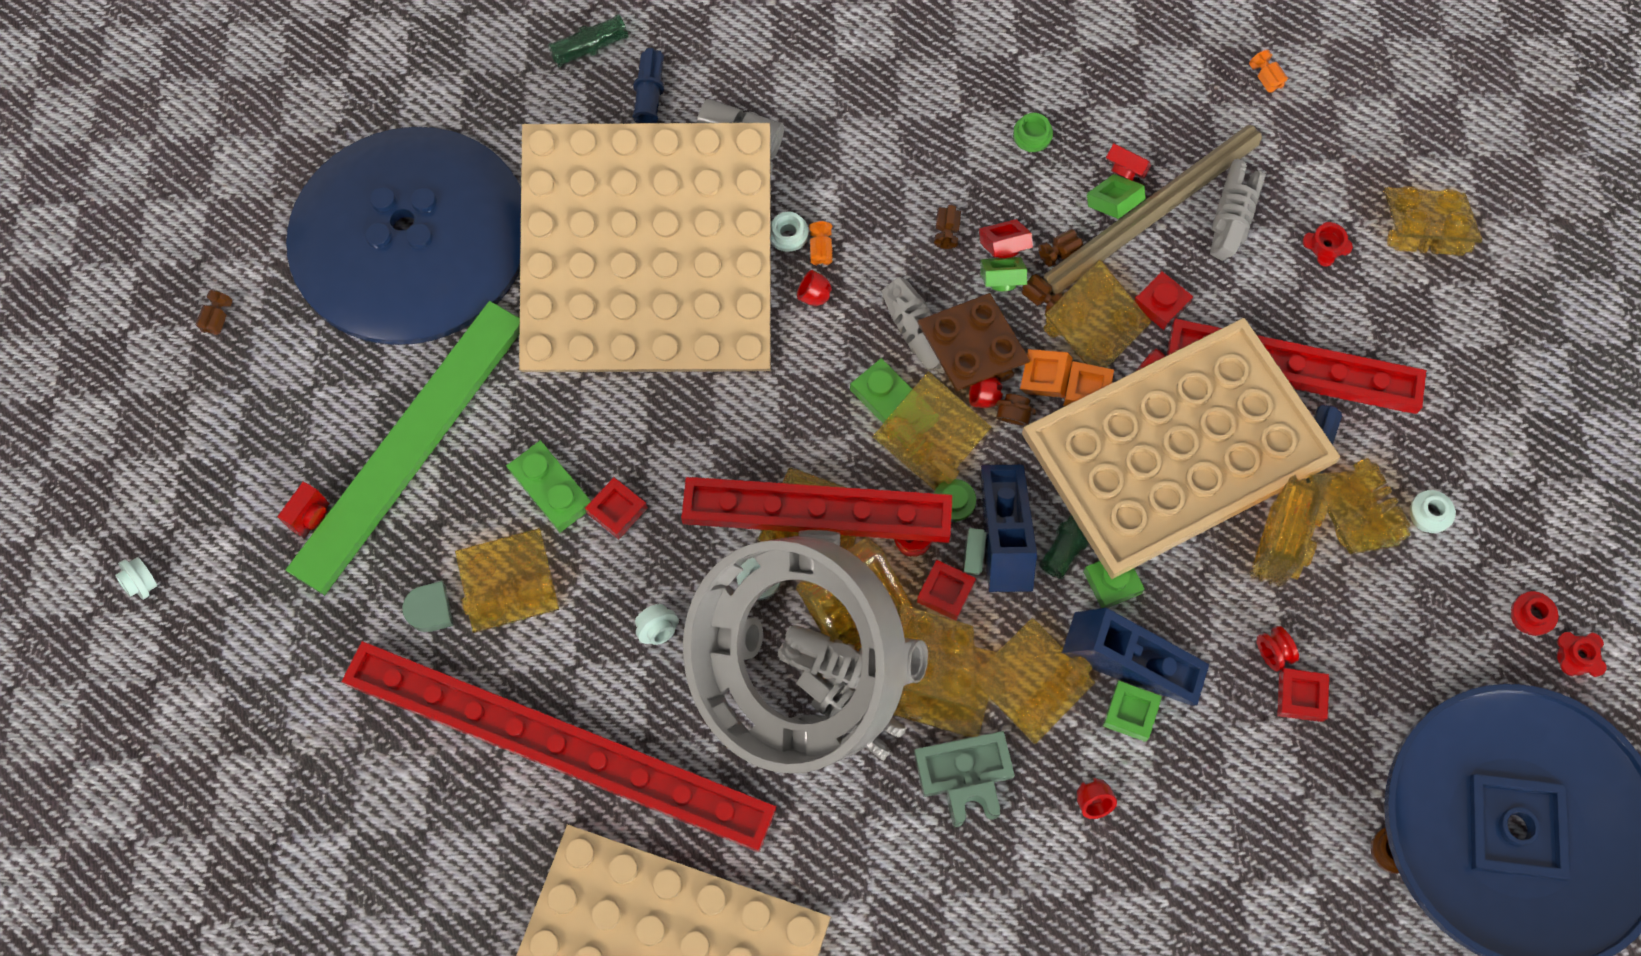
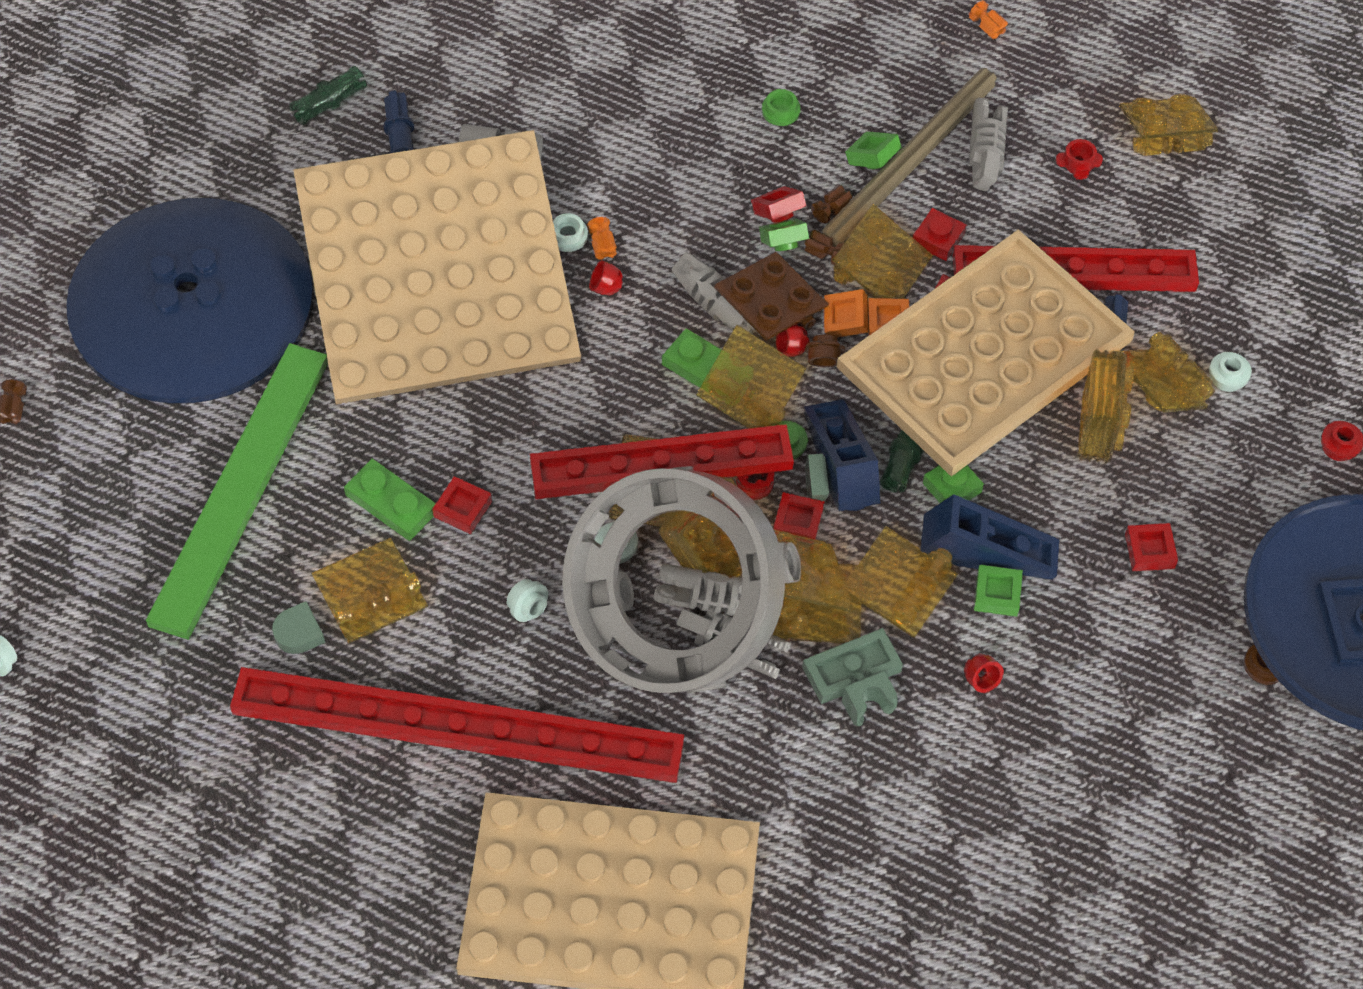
camera: 15 degrees left, 10 degrees down
(304, 510) = (152, 562): red plate -> none
(948, 223) = (720, 200): reddish brown piece -> none
(1127, 163) = (877, 118): red plate -> none
(1277, 648) = (1118, 511): red bush -> none

